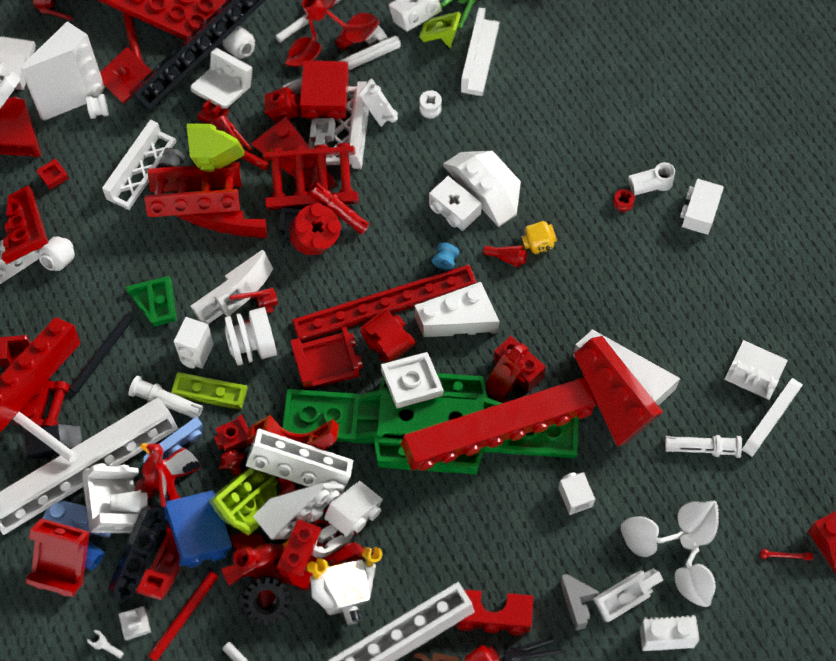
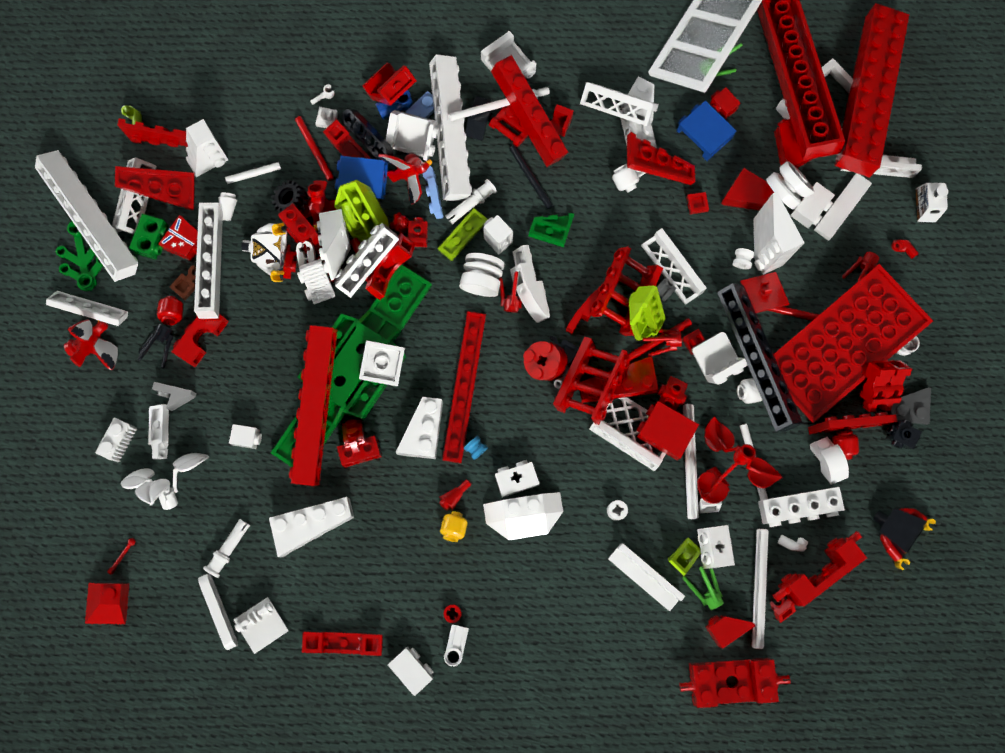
camera: 115 degrees right, 15 degrees up
(128, 502) = (403, 143): white cone -> none
(322, 130) = (630, 410): light grey plate -> none
(326, 360) = (441, 321): red panel -> none
(339, 208) = (559, 381): red pin -> none
(377, 103) = (635, 466): white hinge -> none
(387, 336) = (429, 368): red brick -> none
(616, 390) = (291, 501): red wedge -> none
(717, 281) = (342, 643): none -> red slope

